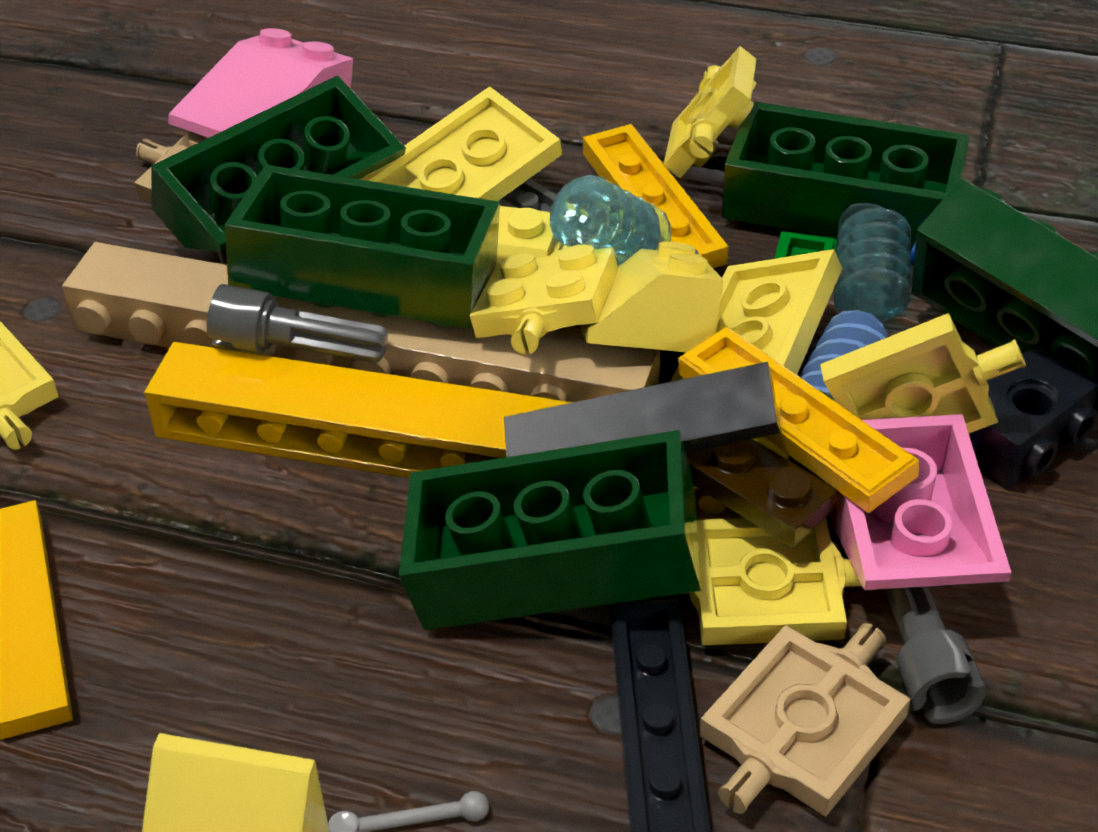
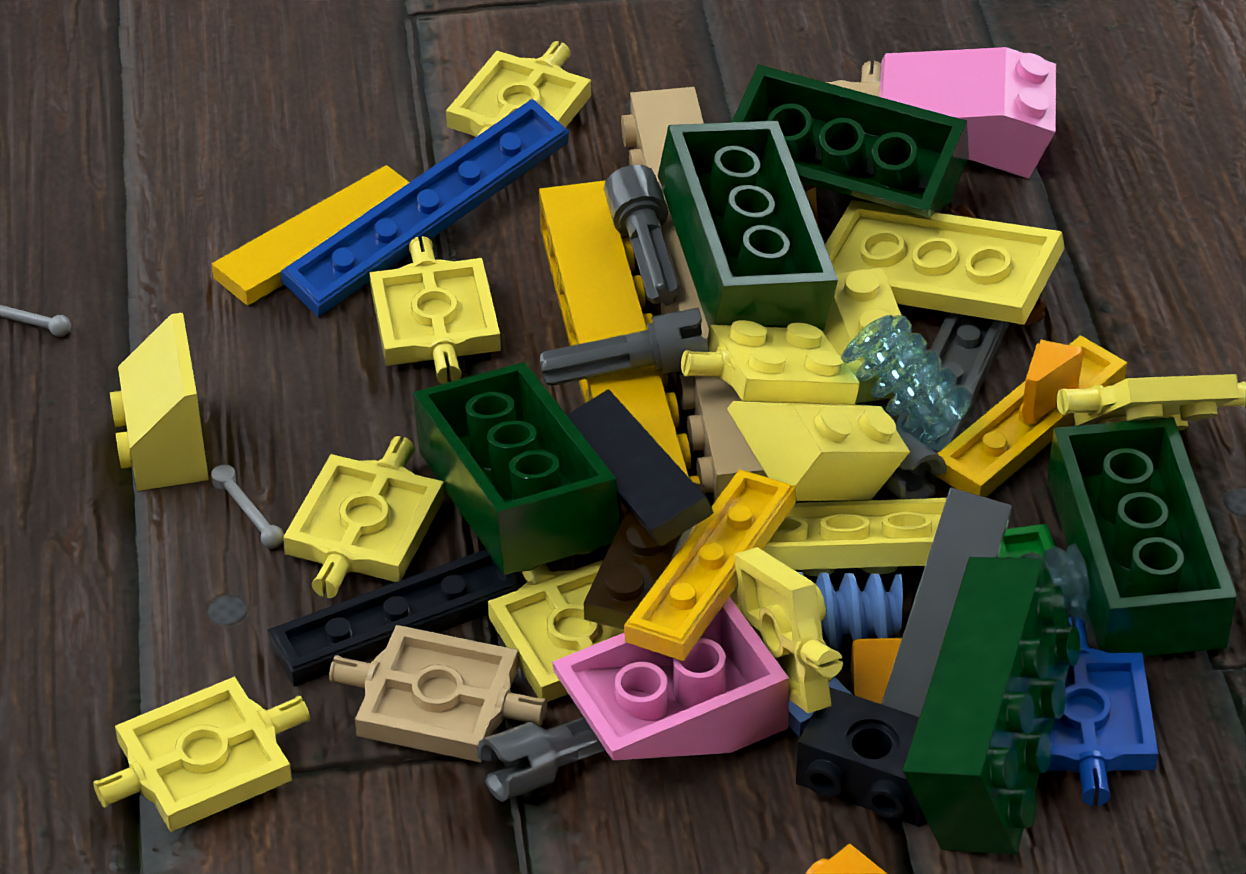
camera: 65 degrees right, 0 degrees up
(74, 511) = (424, 207): none -> blue tile
(229, 546) = (434, 311): none -> light yellow plate
(466, 360) = (658, 346): none -> dark grey piece
(508, 704) = (364, 517): none -> light yellow plate
(649, 157) = (1051, 369): none -> light orange slope
(885, 269) = (966, 529): none -> dark grey tile

